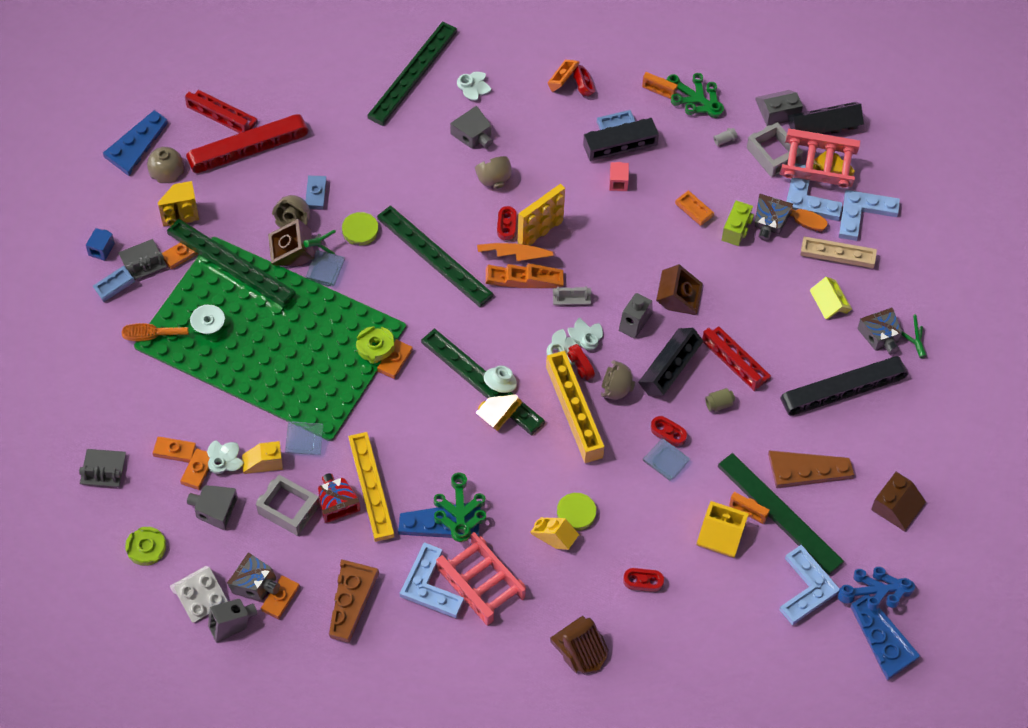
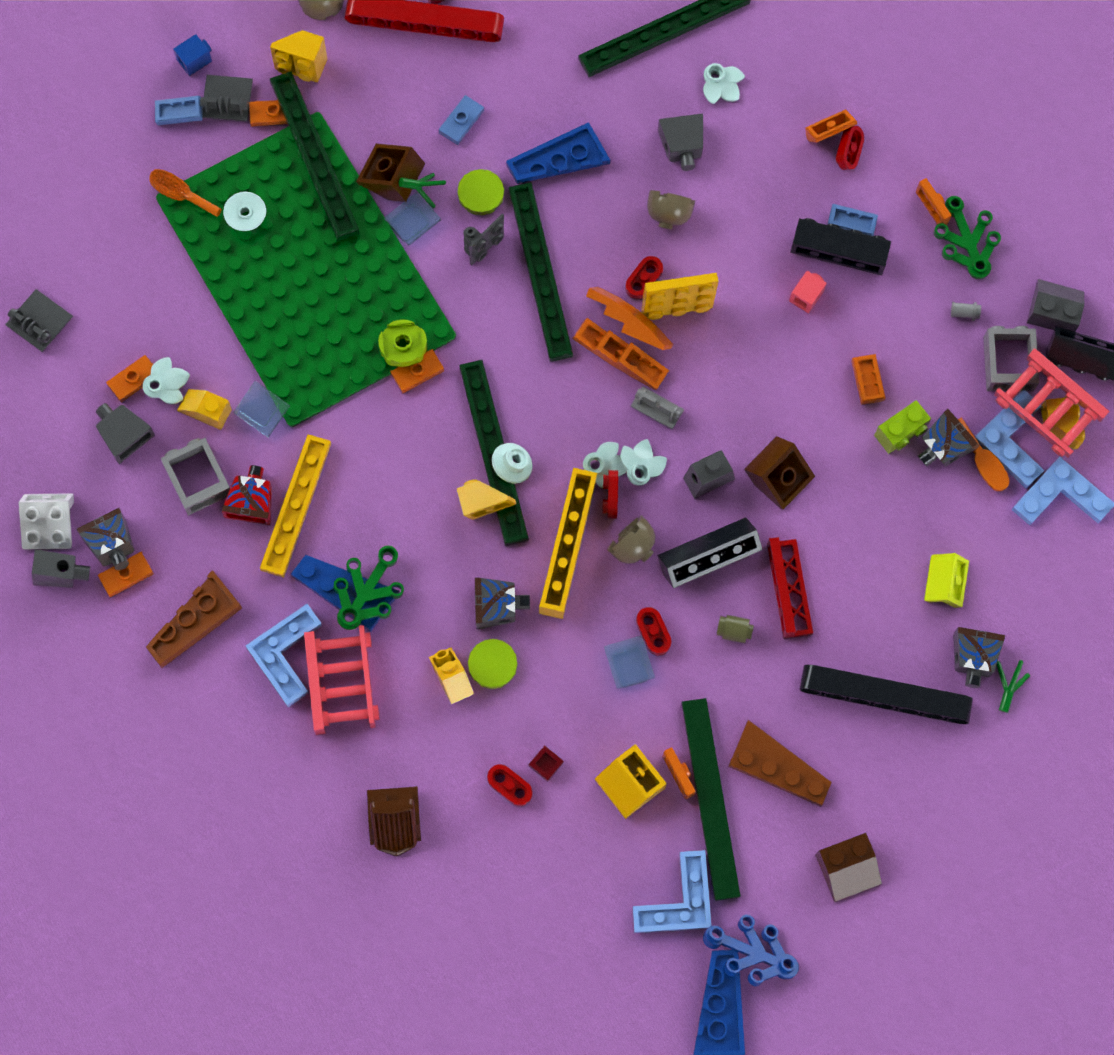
camera: 30 degrees right, 15 degrees up
(145, 546) = (28, 435): lime tile -> none
(174, 449) = (123, 341): orange plate -> none
(290, 209) = (416, 131): dark tan cylinder -> none
(381, 254) = (477, 244): none -> dark grey hinge
(399, 178) = (562, 155): none -> blue wing
(552, 470) = (497, 602): none -> torso
(657, 552) = (546, 763): none -> dark red plate
(838, 252) = (995, 529): tan plate -> none

